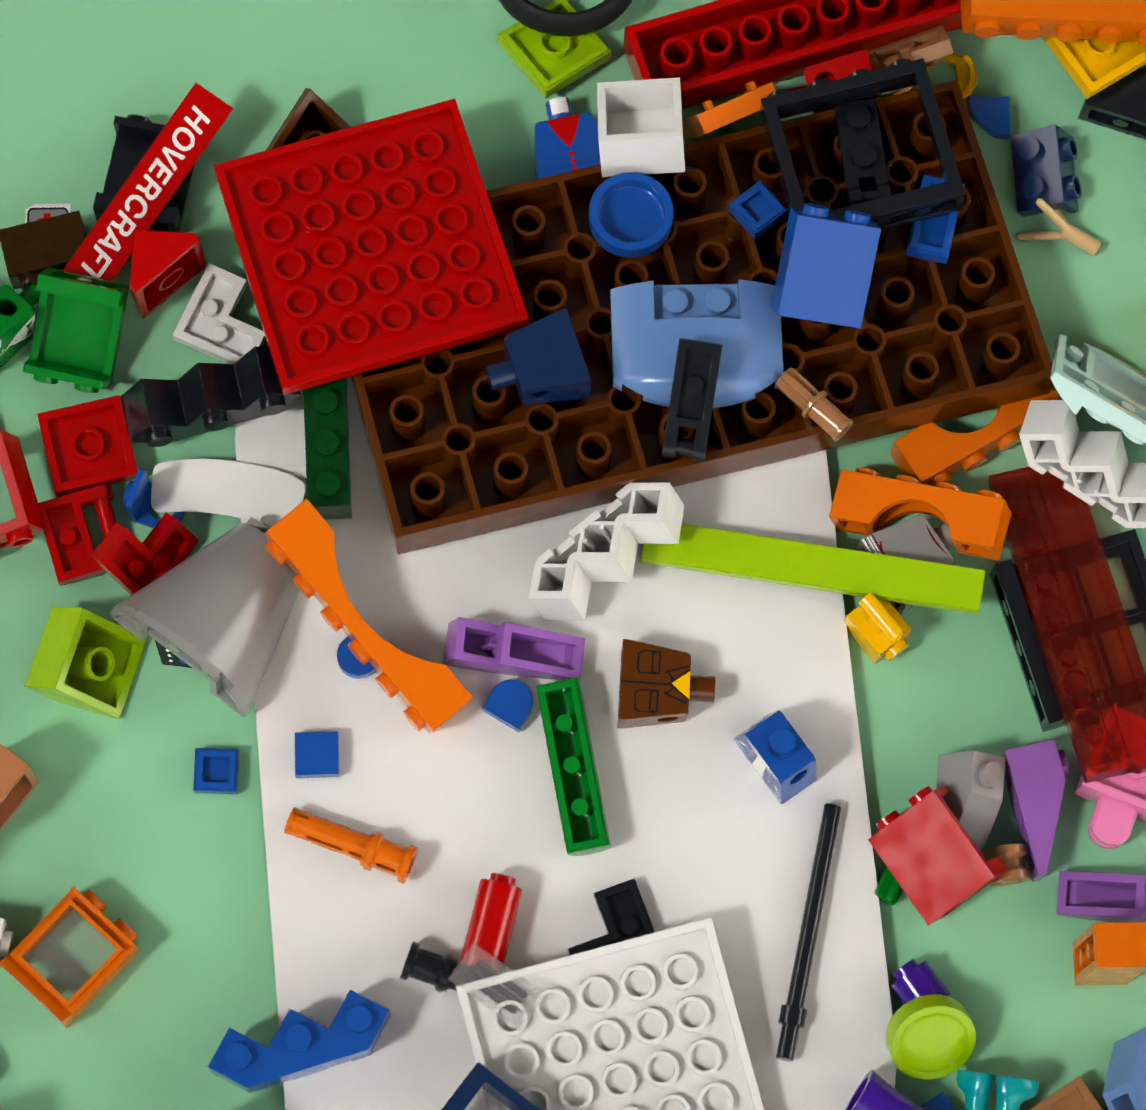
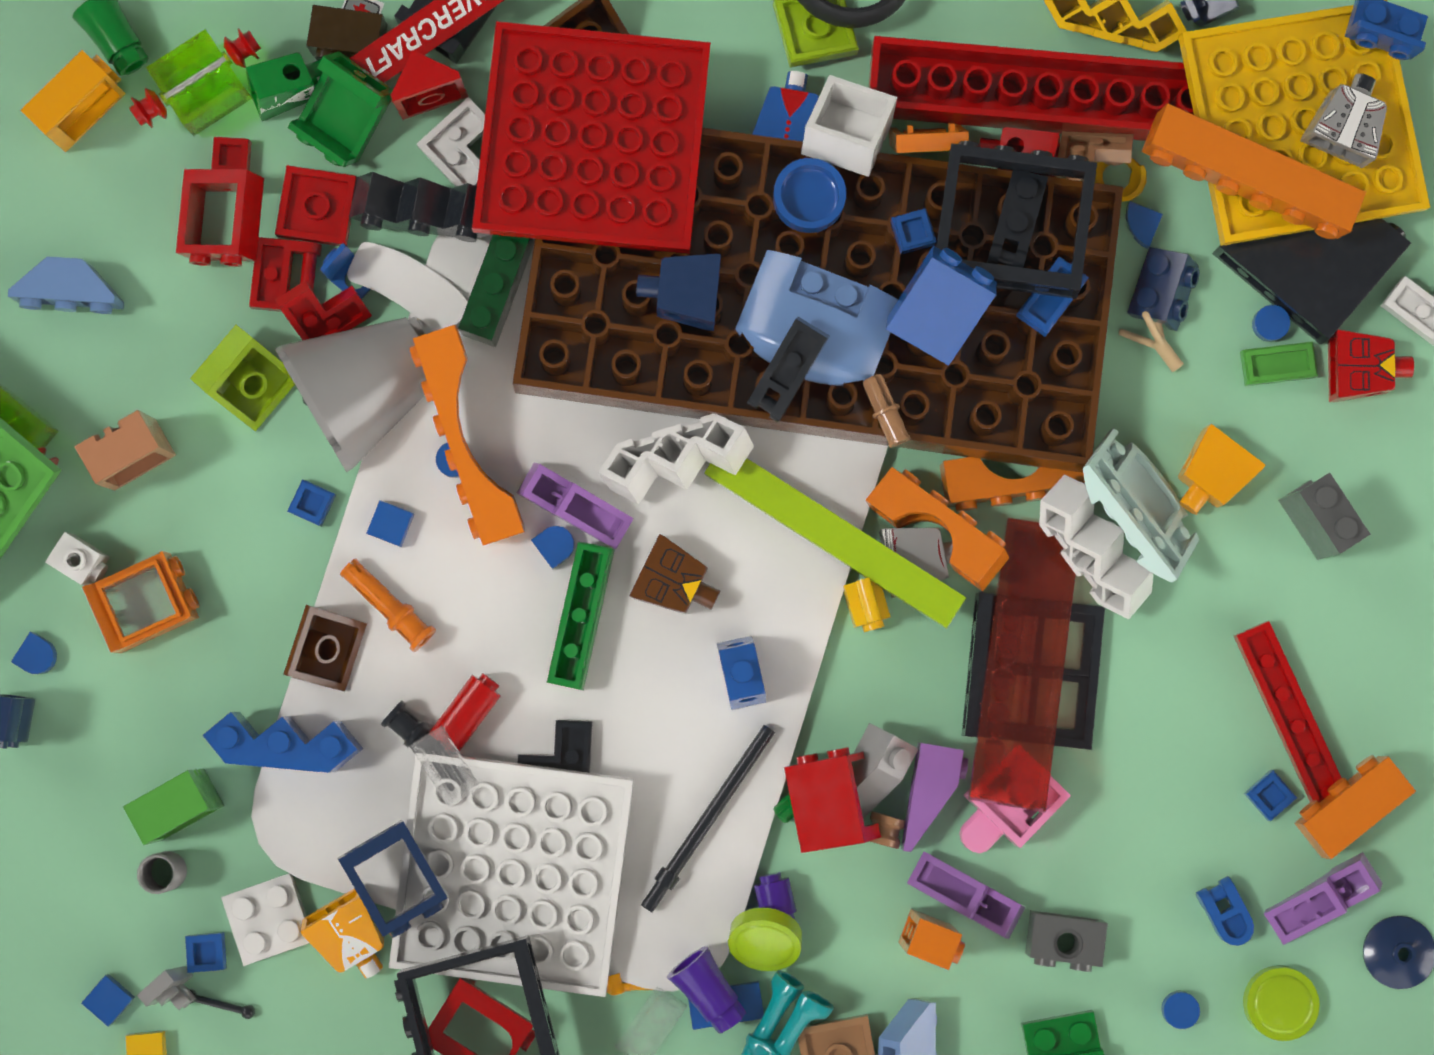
camera: 30 degrees right, 10 degrees up
(304, 919) = (325, 648): none -> reddish brown slope

